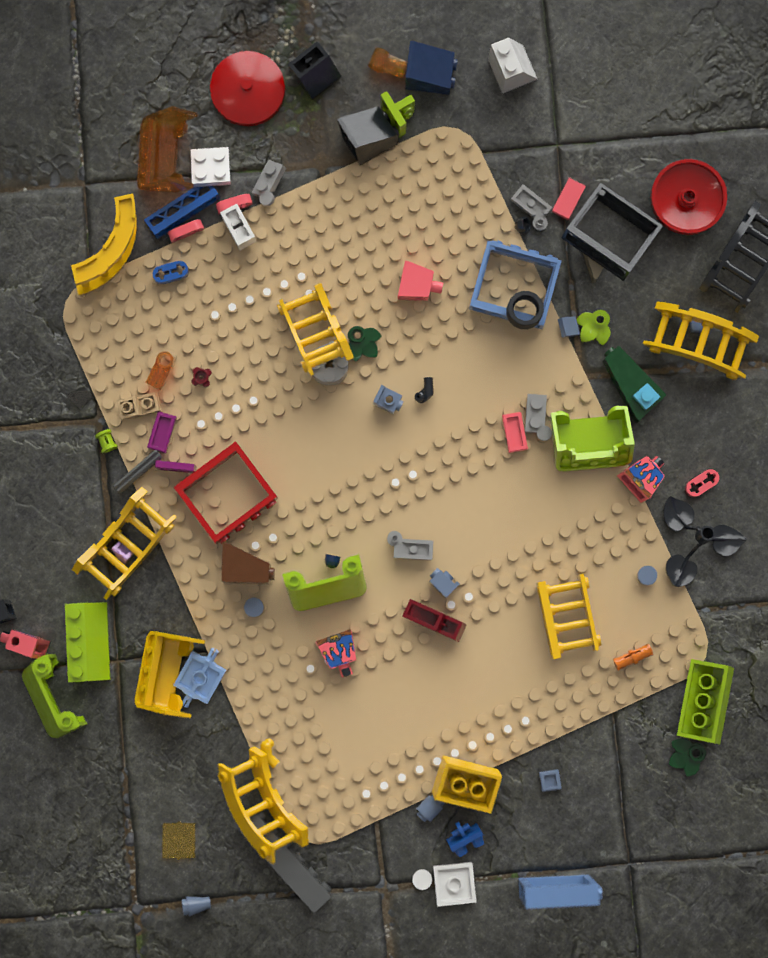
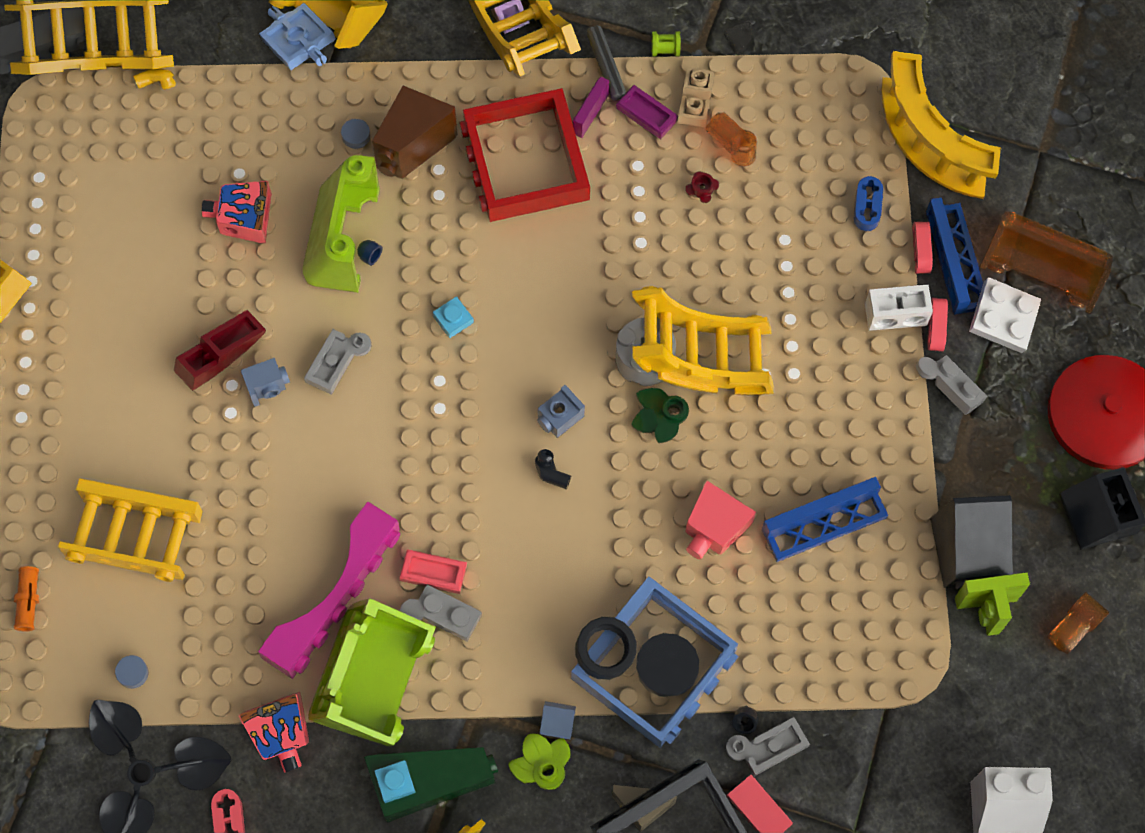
camera: 115 degrees right, 15 degrees down
(352, 491) = (453, 317): none -> medium azure plate
(384, 226) = (822, 508): none -> blue fence
(430, 69) = (1047, 676): dark blue slope -> none
(517, 273) = (667, 665): none -> black tile
(591, 490) = (294, 641): none -> dark pink arch

